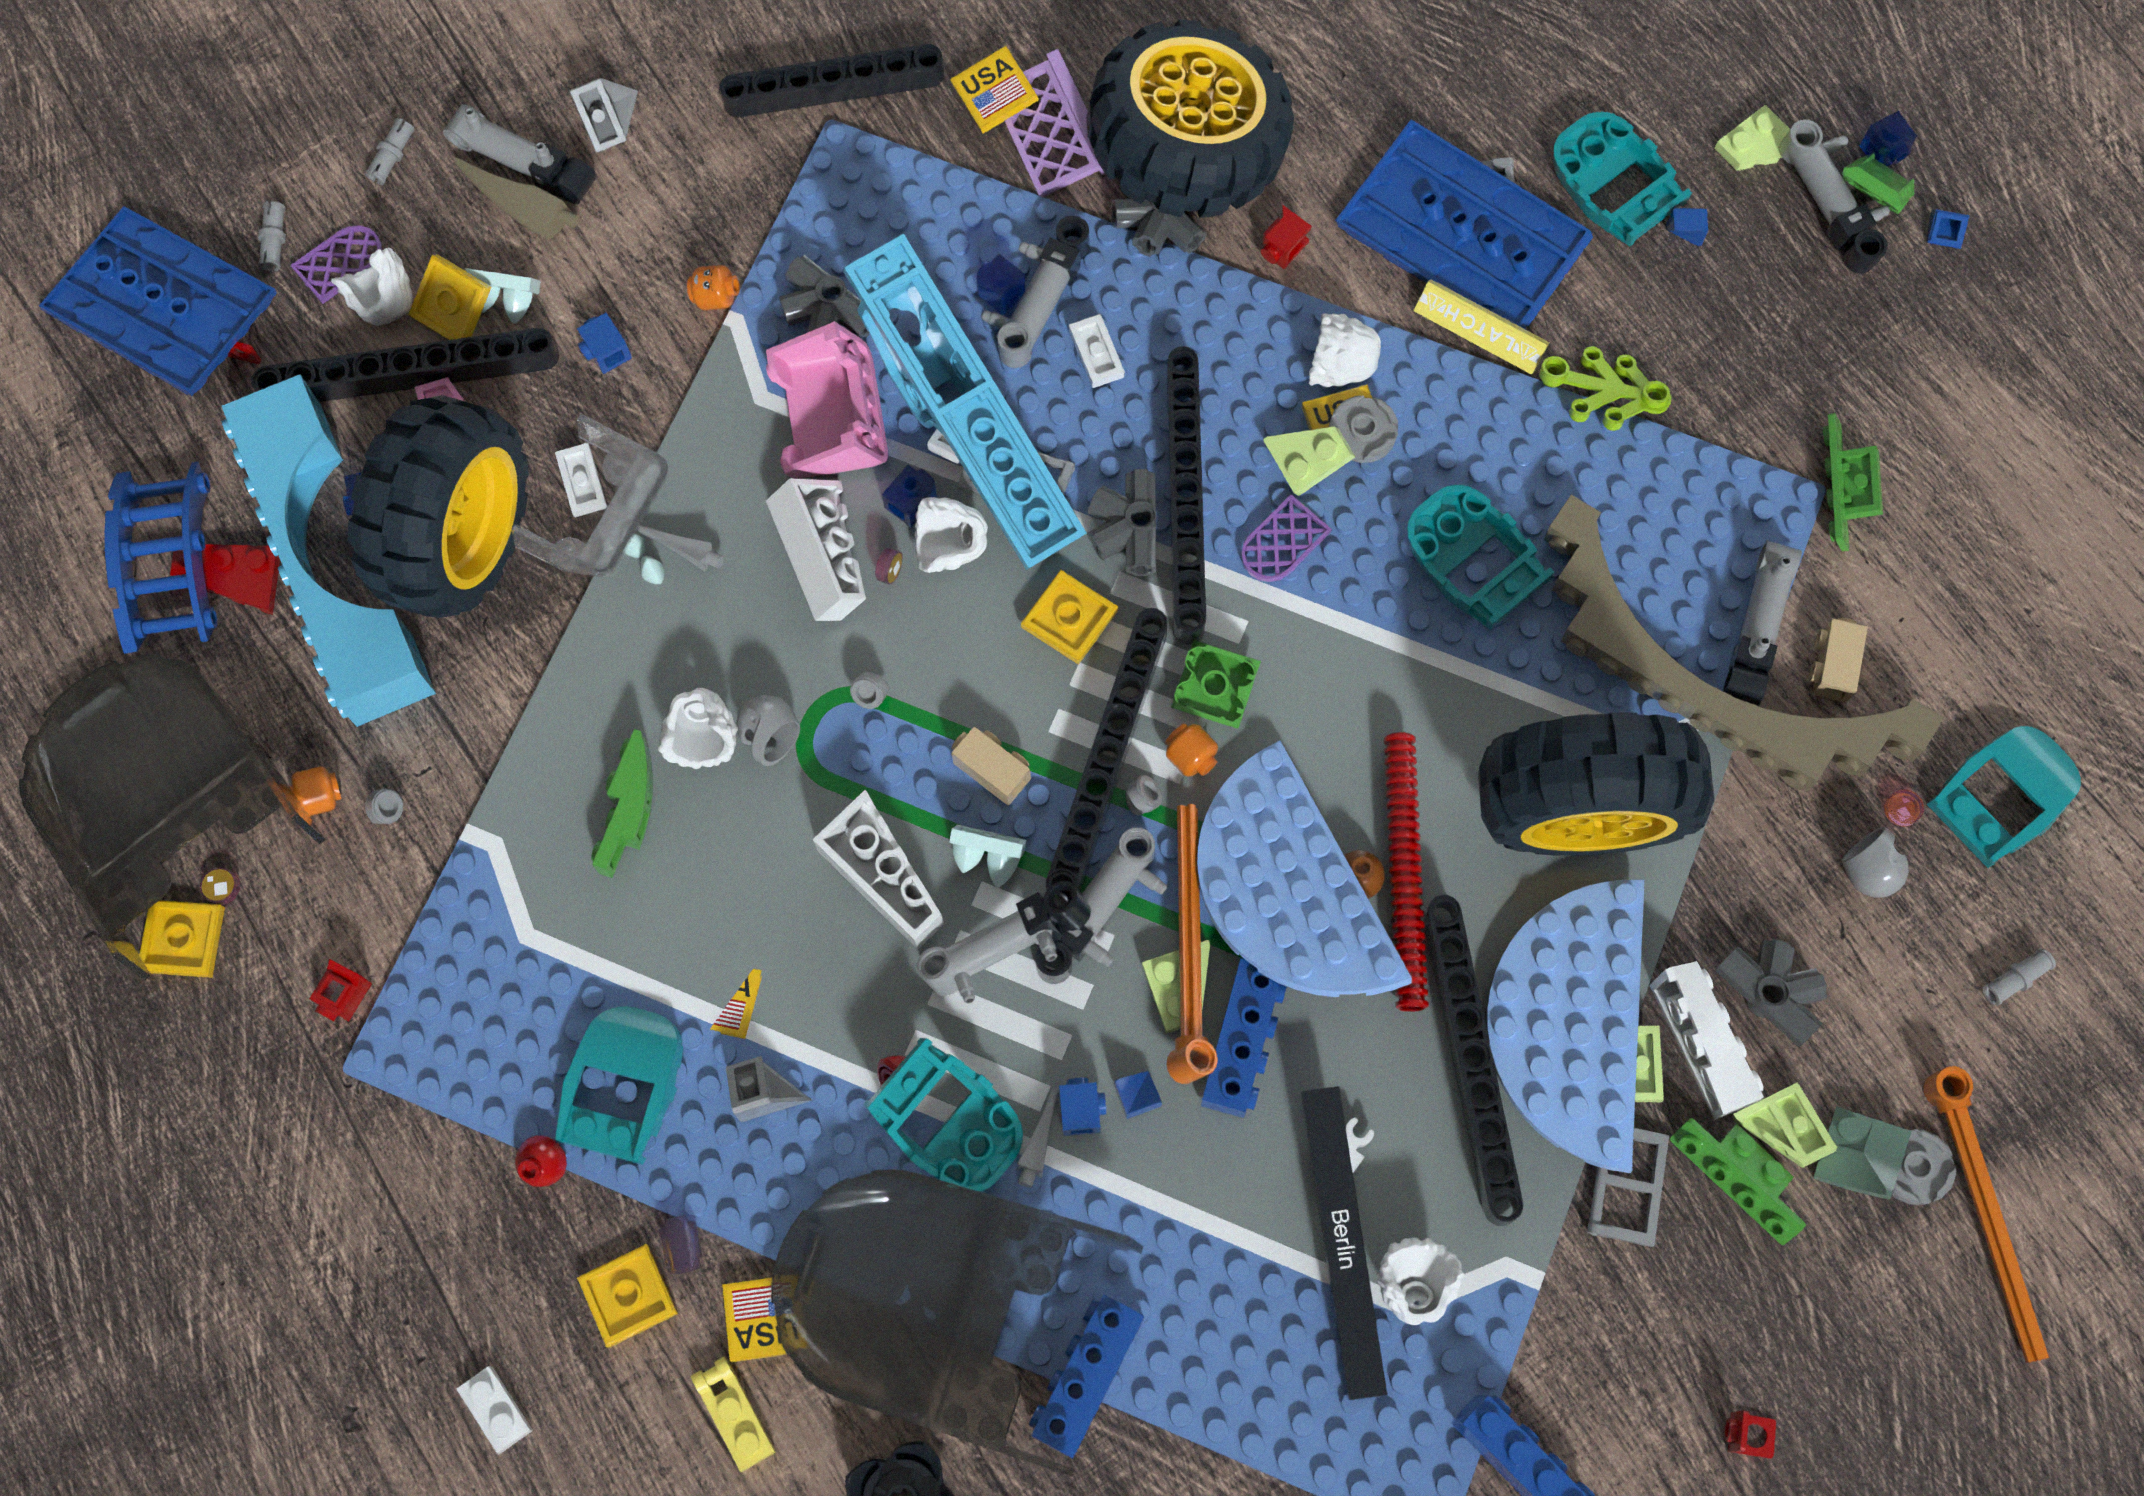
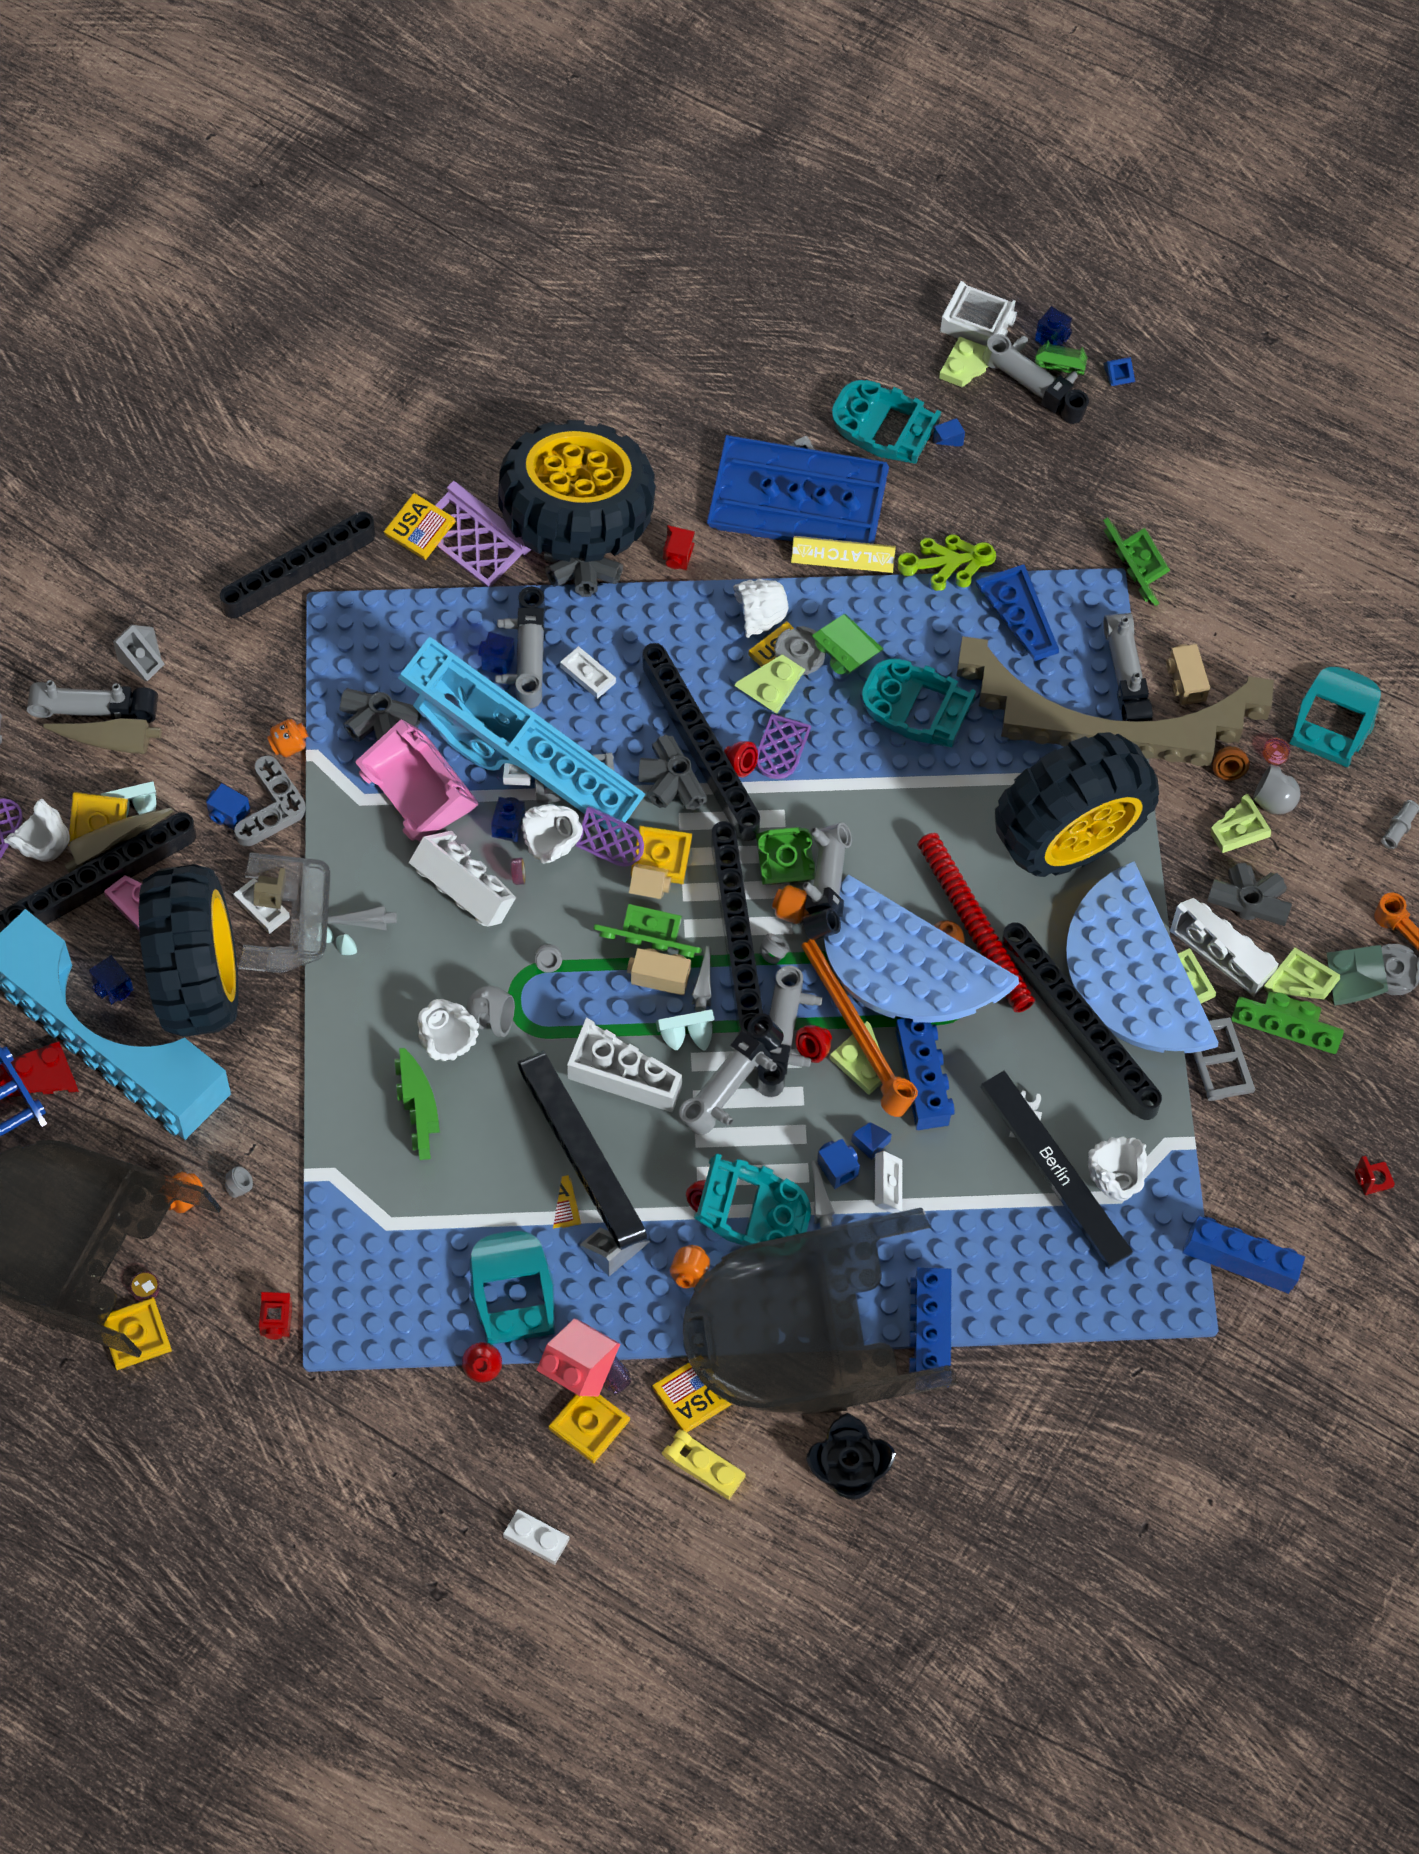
camera: 30 degrees left, 10 degrees down
(450, 324) = (110, 836): none -> dark tan piece
(594, 466) = (270, 890): none -> dark tan panel
(643, 1217) = (579, 1358): none -> coral slope
(664, 369) = (279, 808): none -> light grey beam
(776, 958) = (582, 1150): none -> black beam
(835, 1158) = (689, 1266): none -> orange head
(1005, 530) = (590, 811): none -> medium lavender window
(1006, 705) = (650, 926): none -> bright green bracket
(1030, 811) = (702, 989): none -> light grey piece
(1033, 646) = (649, 881): none -> tan brick
(1128, 1161) = (888, 1182): none -> white plate
(1129, 939) = (813, 1042): none -> red brick
(1224, 536) = (742, 757): none -> red brick
(1228, 765) = (823, 897): none -> piece
(1422, 444) = (846, 644): none -> bright green slope
(1664, 483) = (1019, 607): none -> blue wing
(1800, 86) = (977, 315): none -> white window
(1807, 889) = (1240, 826): none -> yellowish green wing
(1835, 800) = (1230, 763): none -> dark orange brick

